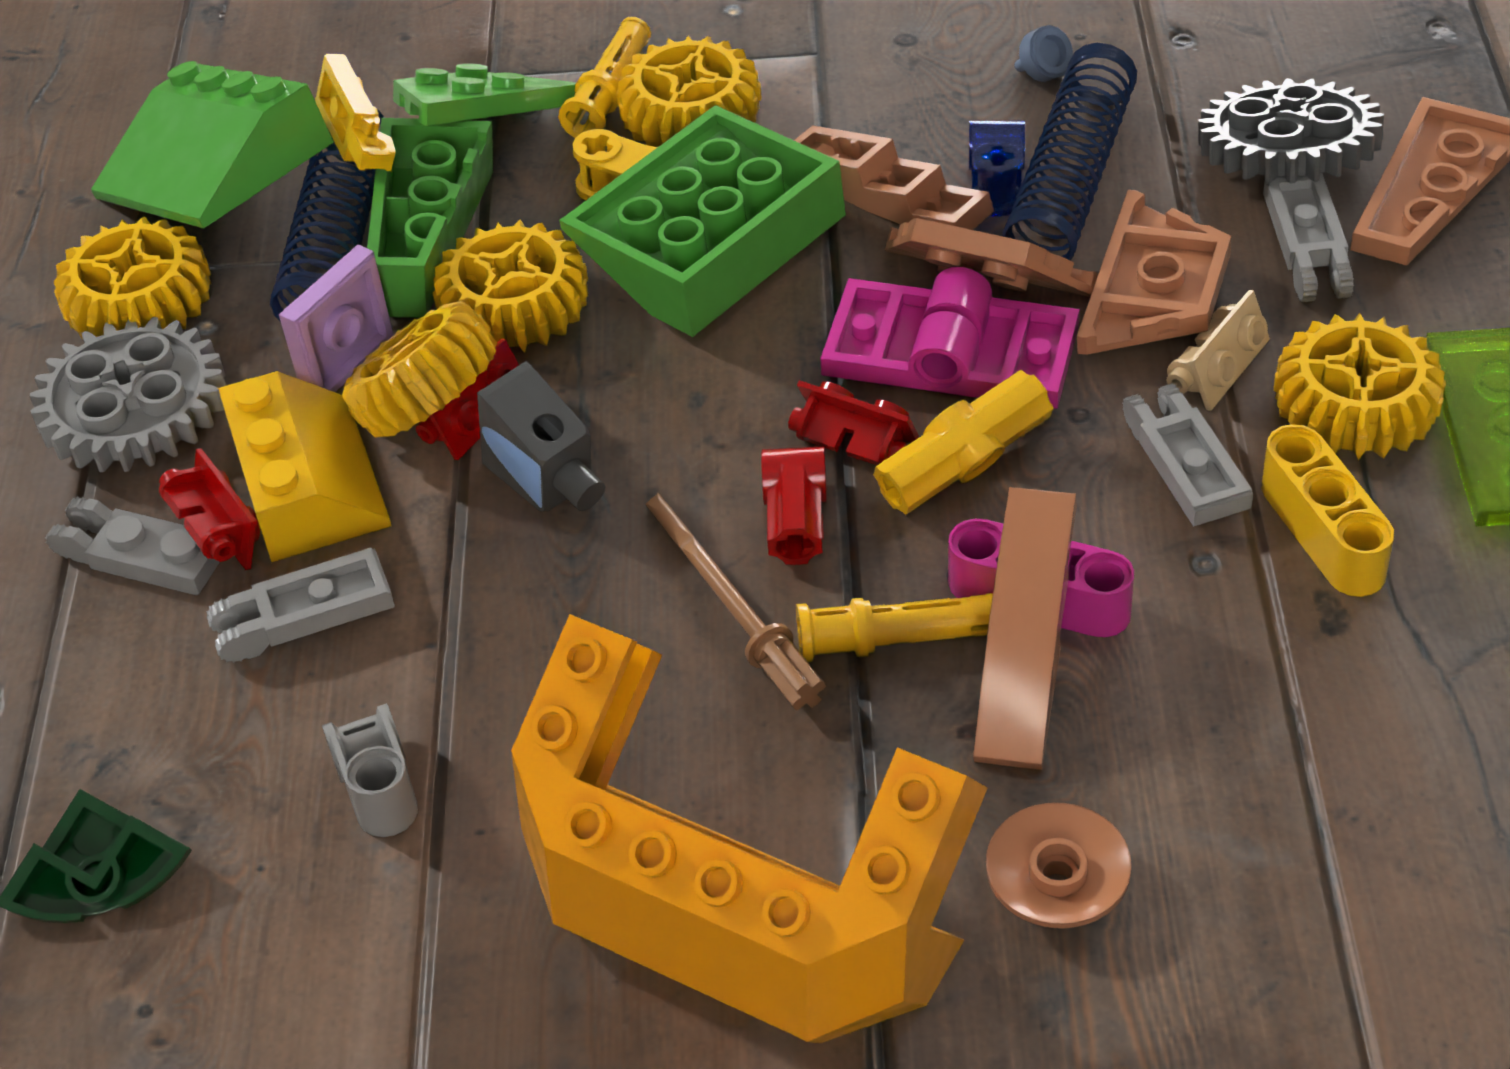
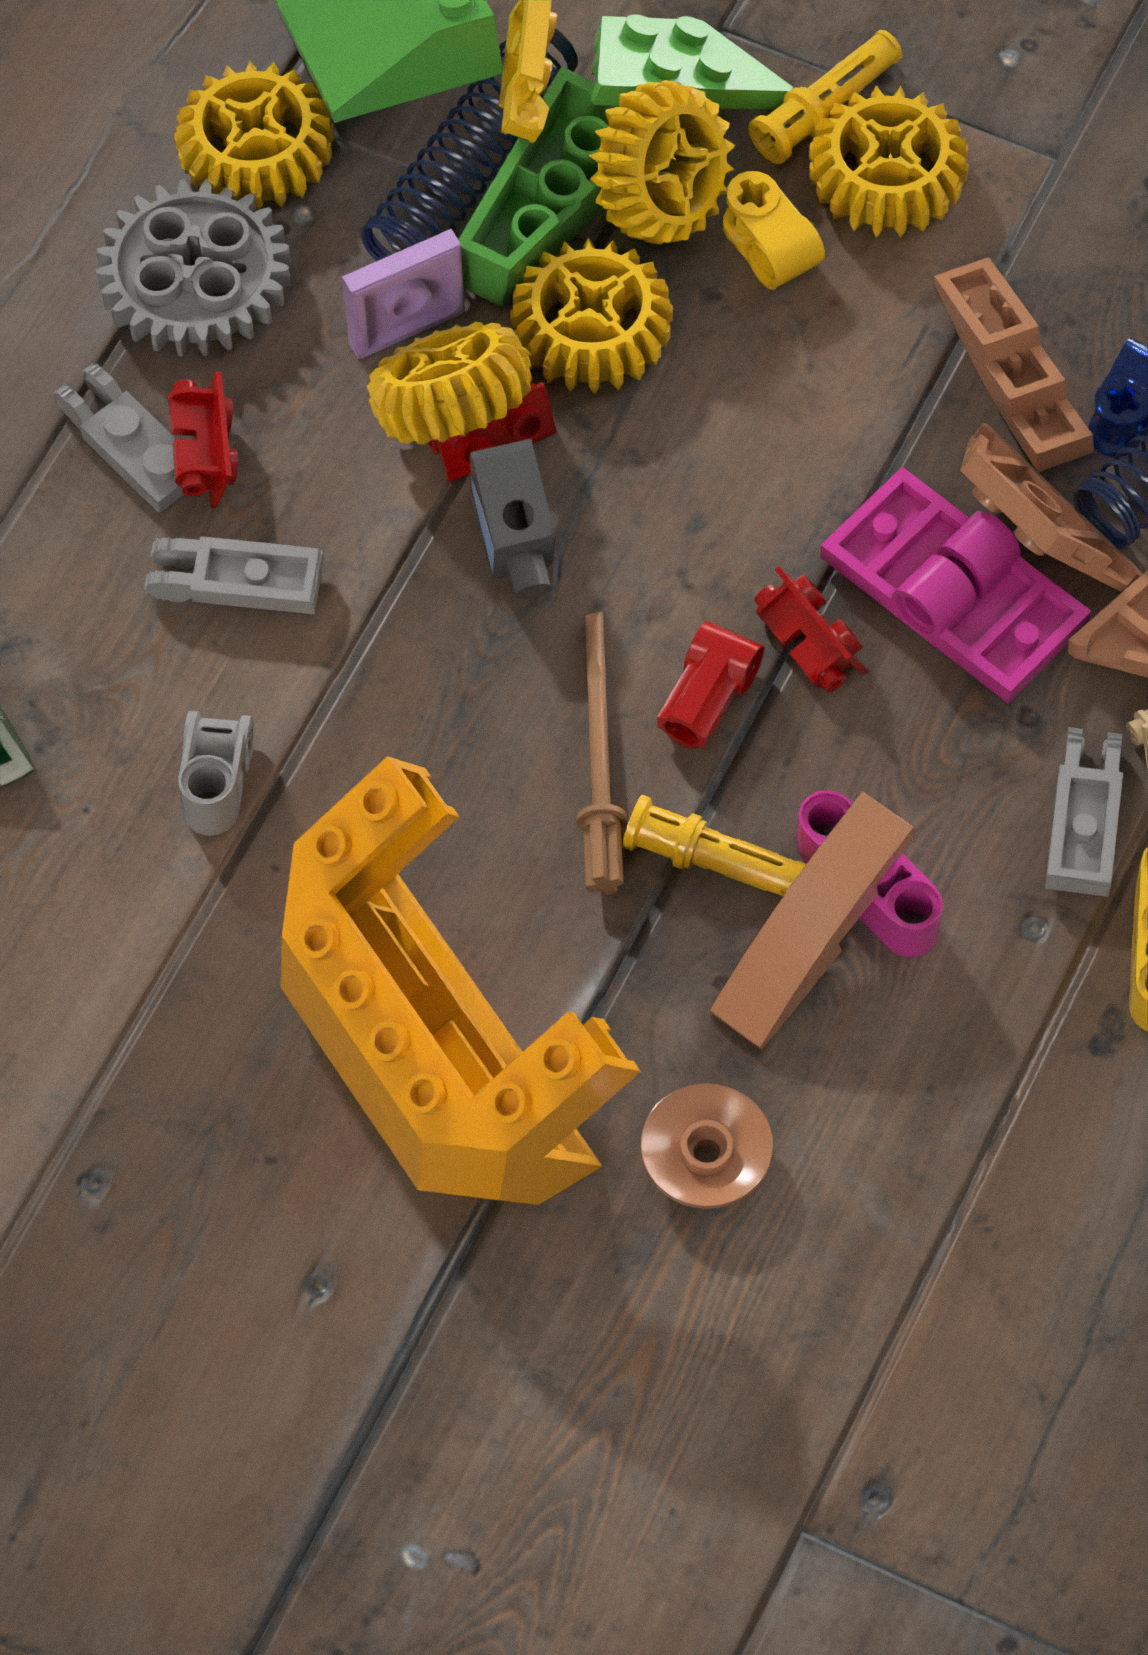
camera: 25 degrees right, 15 degrees up
(302, 464) = (305, 424): yellow slope -> none
(507, 148) = (662, 162): none -> yellow gear
(708, 217) = (811, 329): bright green slope -> none
(963, 441) = (892, 701): yellow piece -> none

